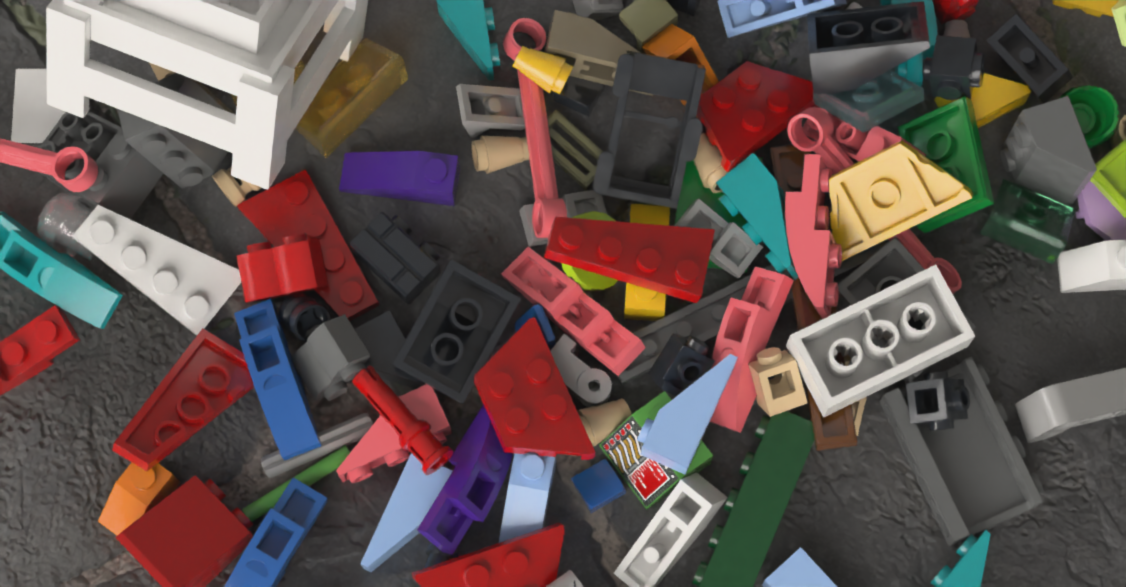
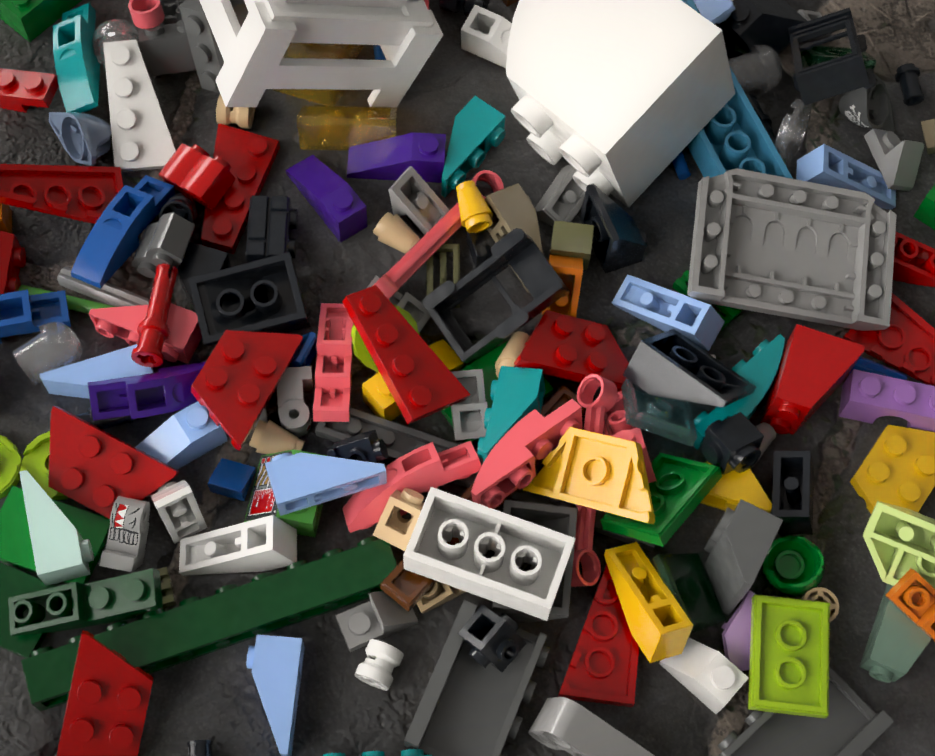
camera: 40 degrees right, 10 degrees down
(138, 335) = (81, 135): none -> sand blue hat
(341, 538) = (49, 350): none -> clear piece
(425, 84) = (392, 156): none -> dark purple slope
(592, 549) = (179, 510): none -> white slope
(827, 481) = (374, 620): none -> light grey slope
(871, 507) = (379, 664): none -> white wheel
(1014, 315) = (605, 654): none -> red wing
(1019, 257) = (647, 603): none -> yellow slope

